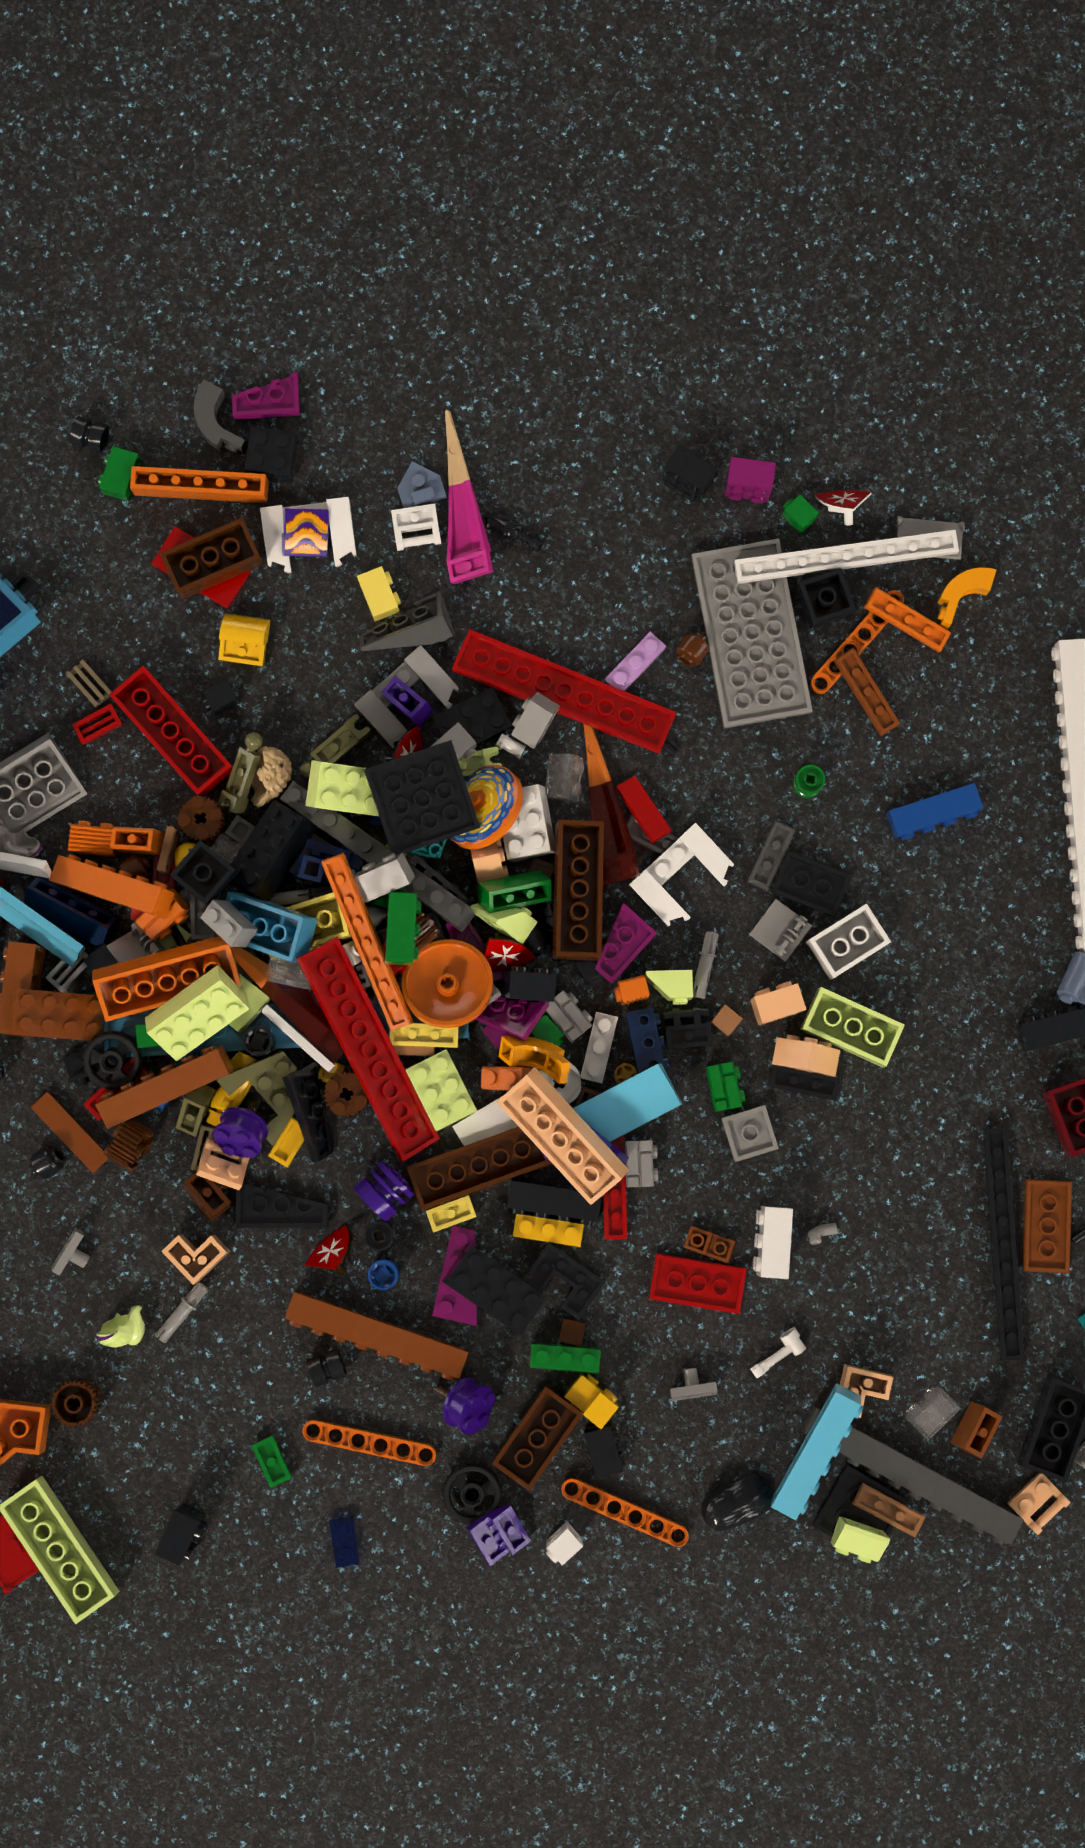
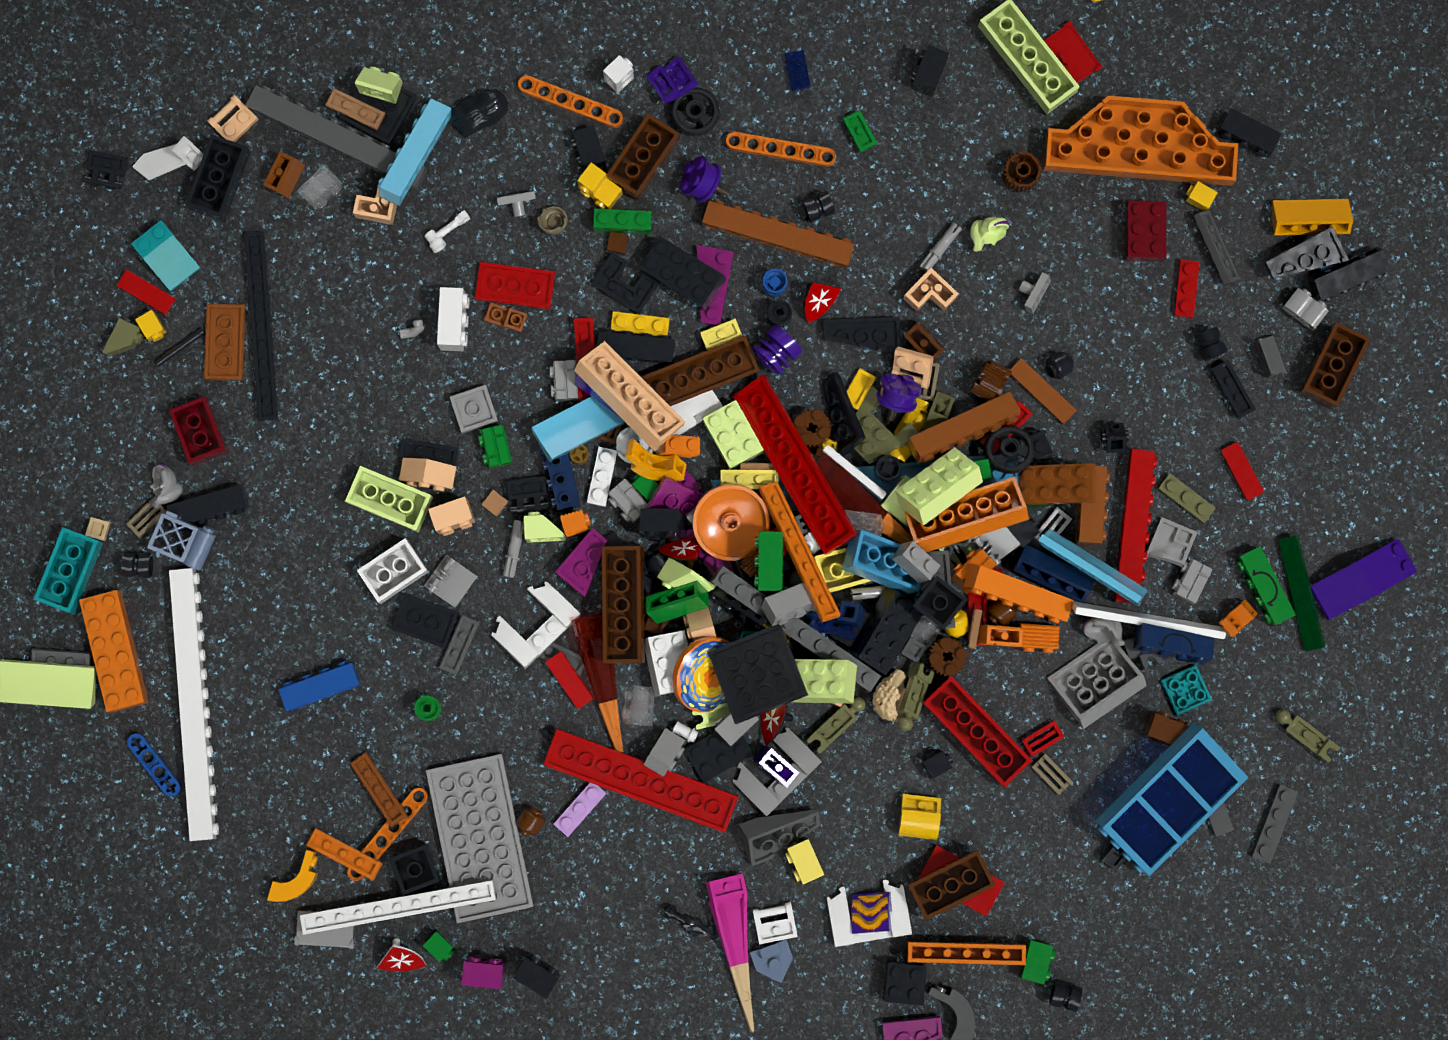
camera: 175 degrees right, 0 degrees up
(649, 1361) = (553, 220): none -> dark tan hair

